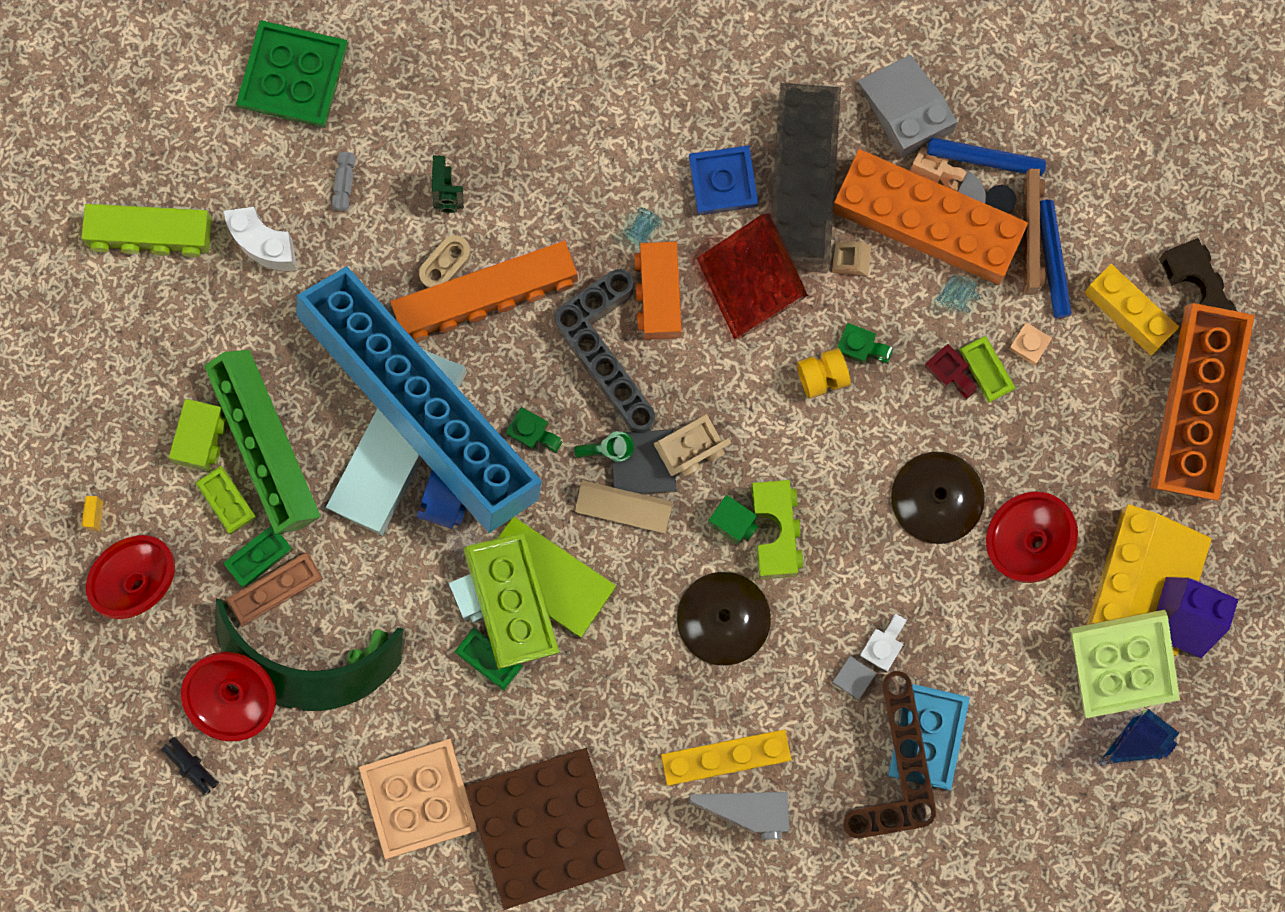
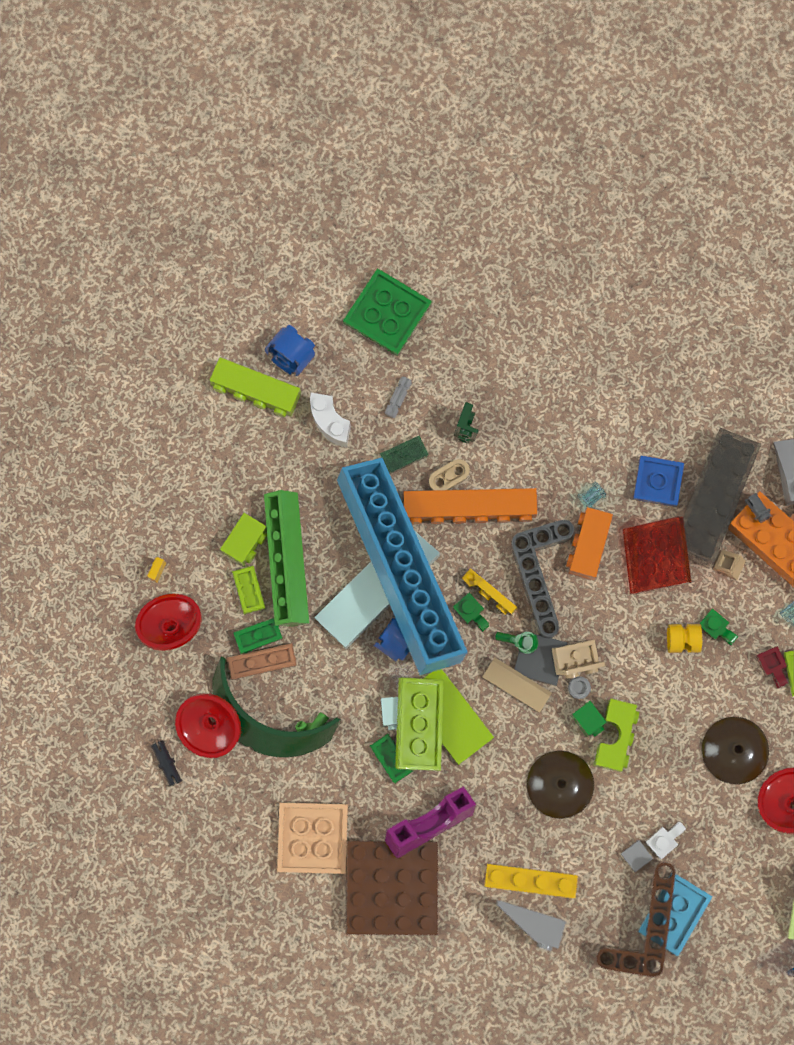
camera: 20 degrees right, 0 degrees up
(178, 165) = (290, 350): none -> blue brick
(376, 253) = (404, 454): none -> clear green plate
(546, 397) = (488, 591): none -> yellow hinge
(589, 702) = (413, 833): none -> magenta arch
(707, 483) = (579, 687): none -> light grey tile
(863, 170) = (758, 508): none -> dark grey pin

